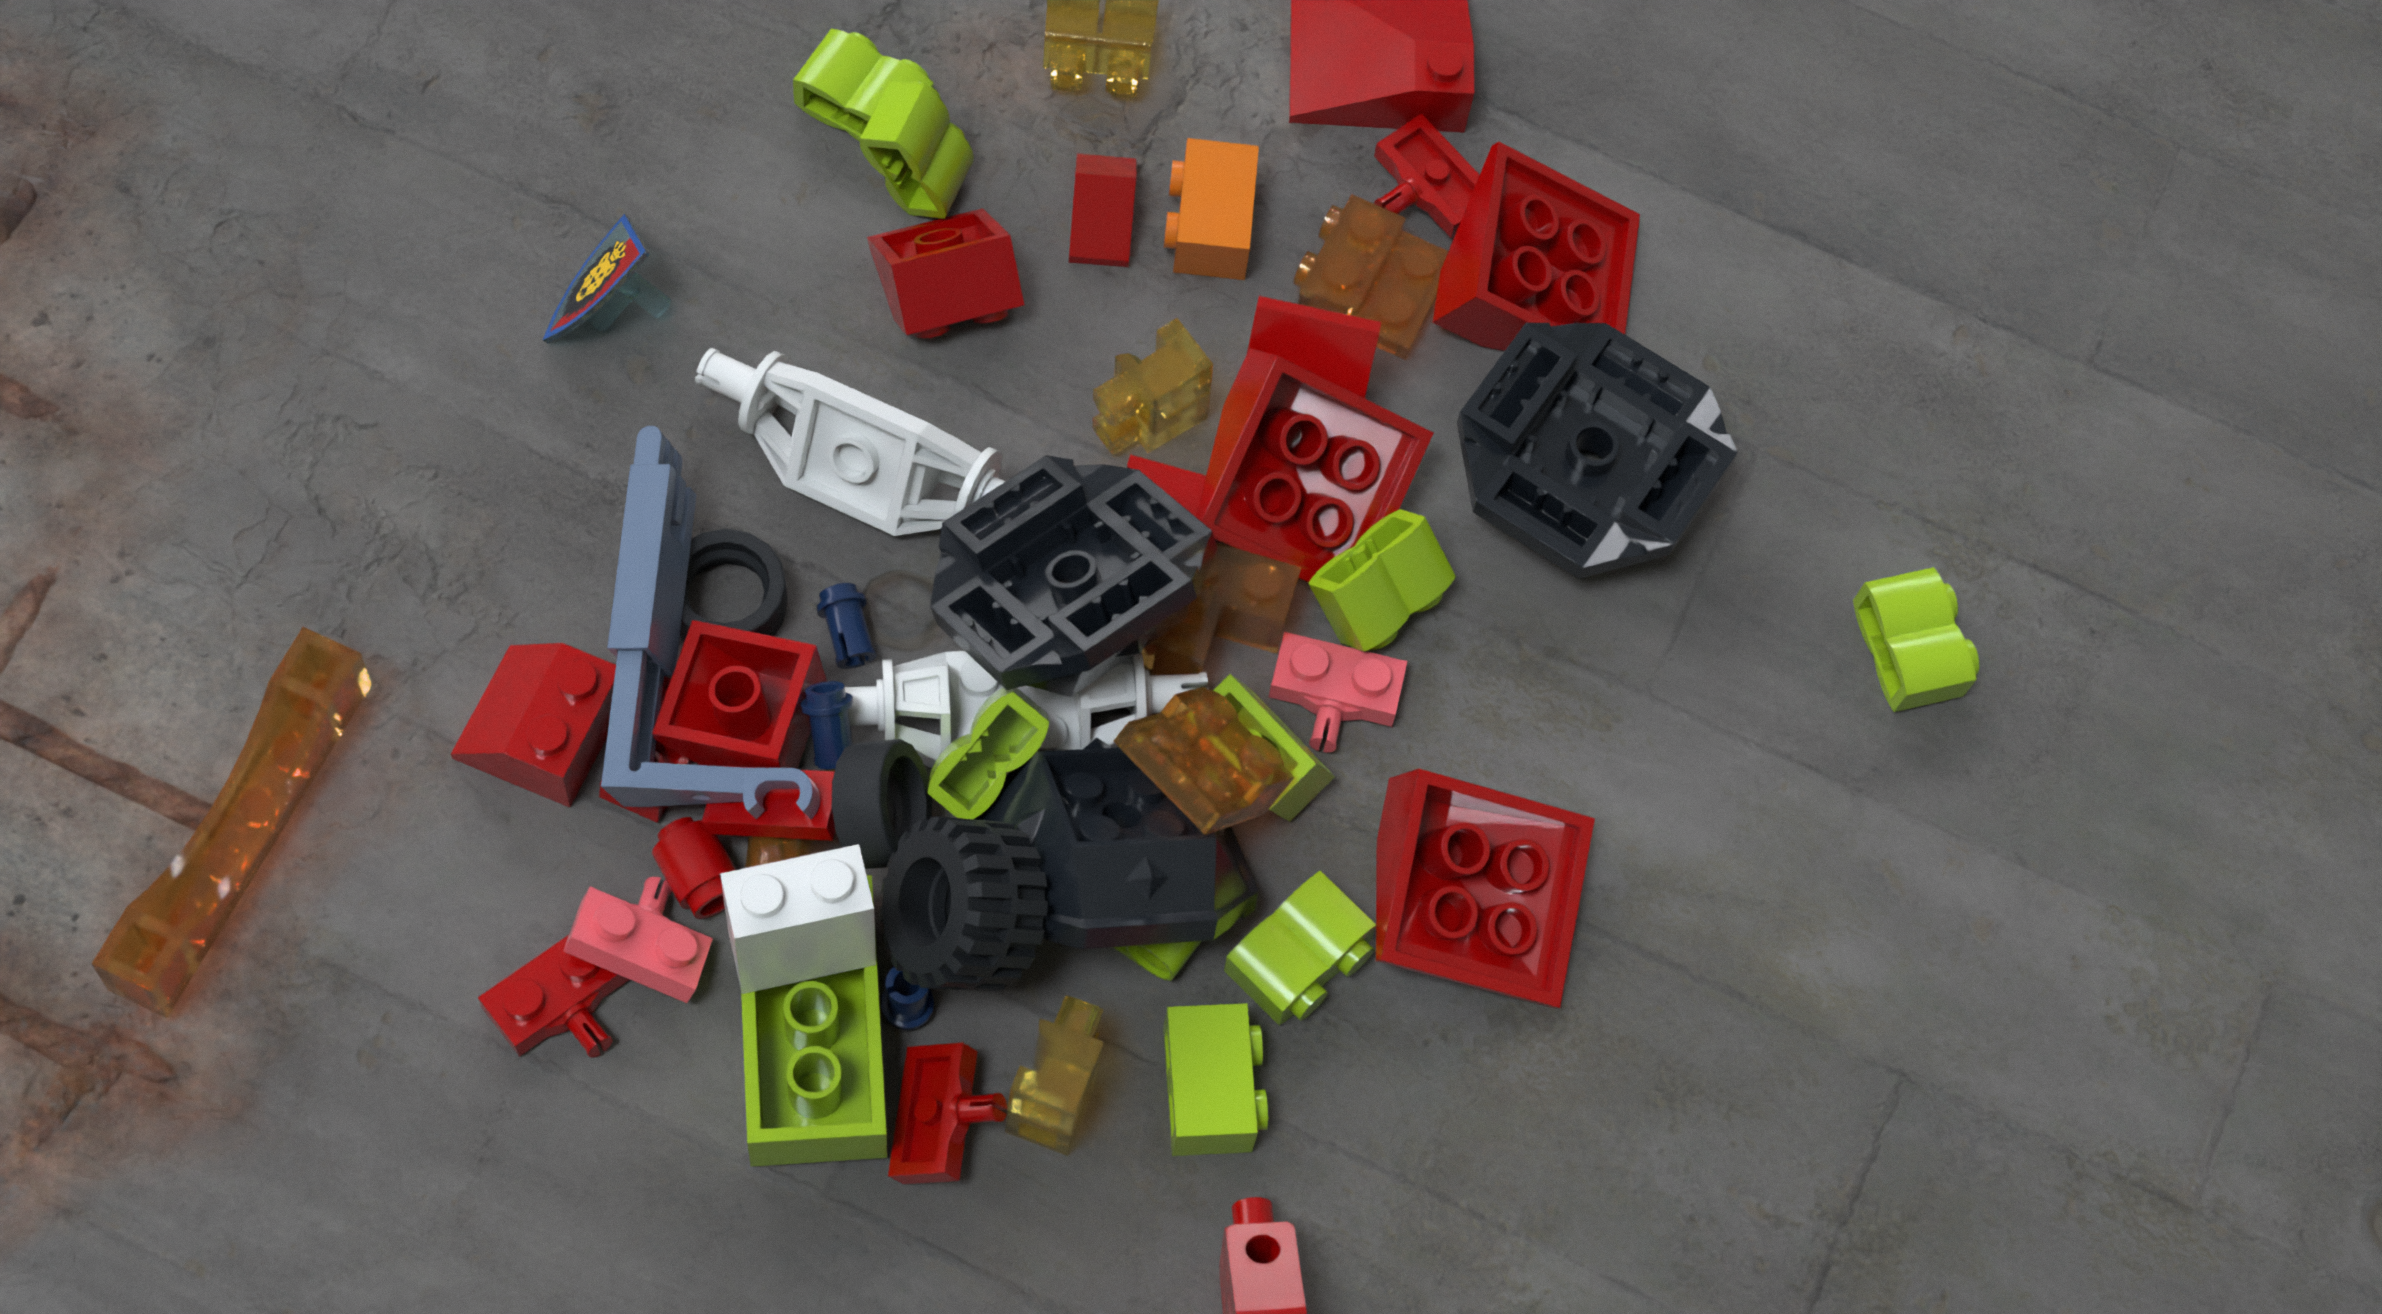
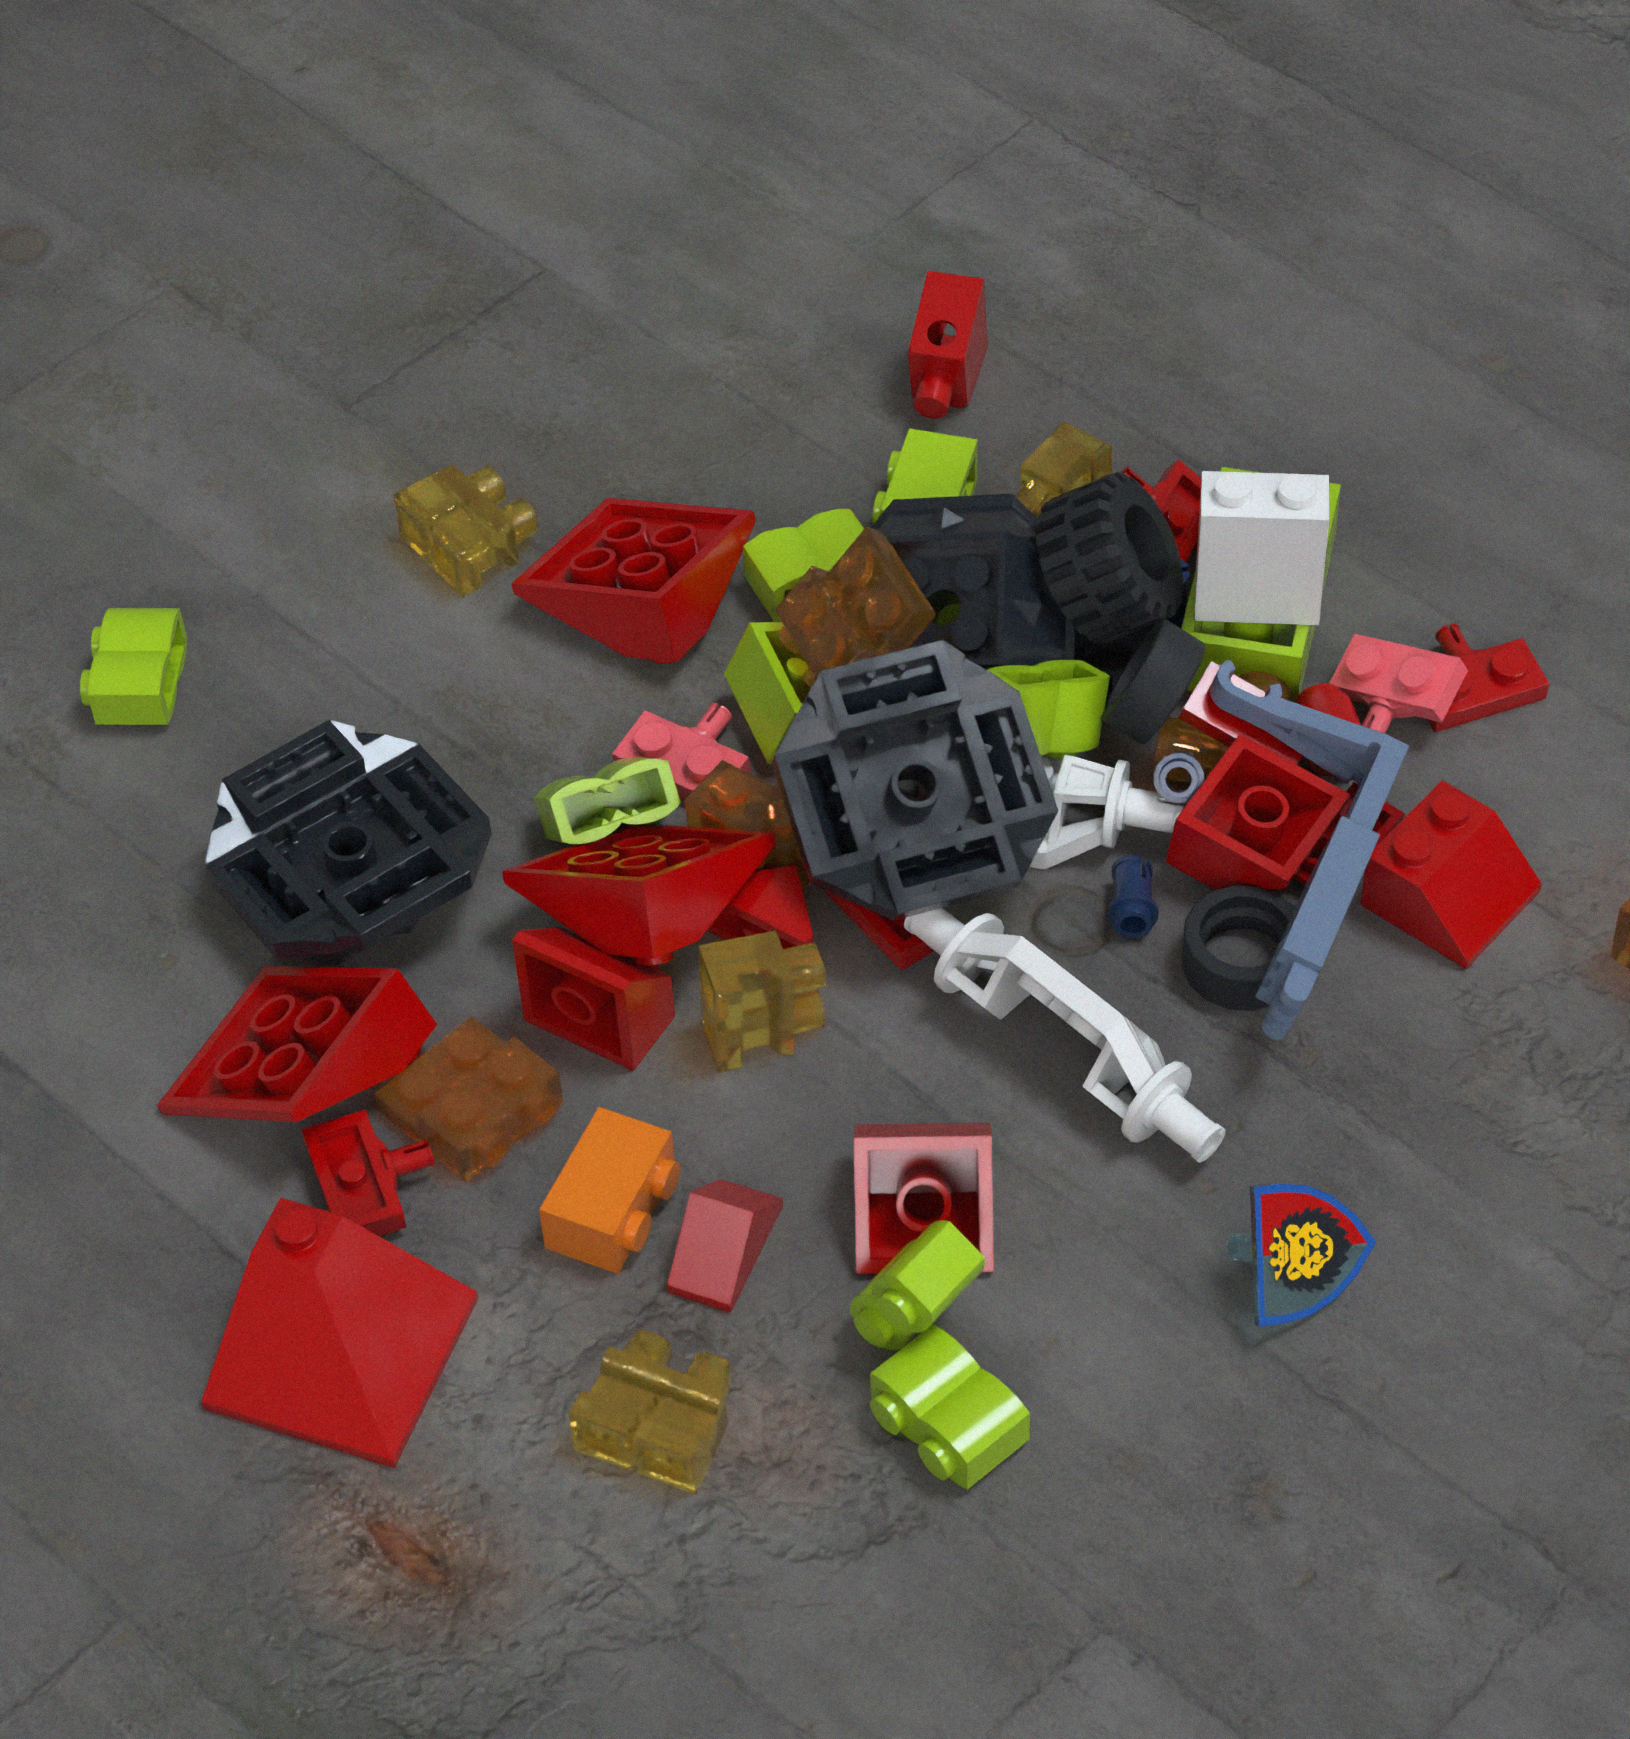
camera: 150 degrees left, 15 degrees down
(1697, 927) = (459, 526): none -> clear yellow hips

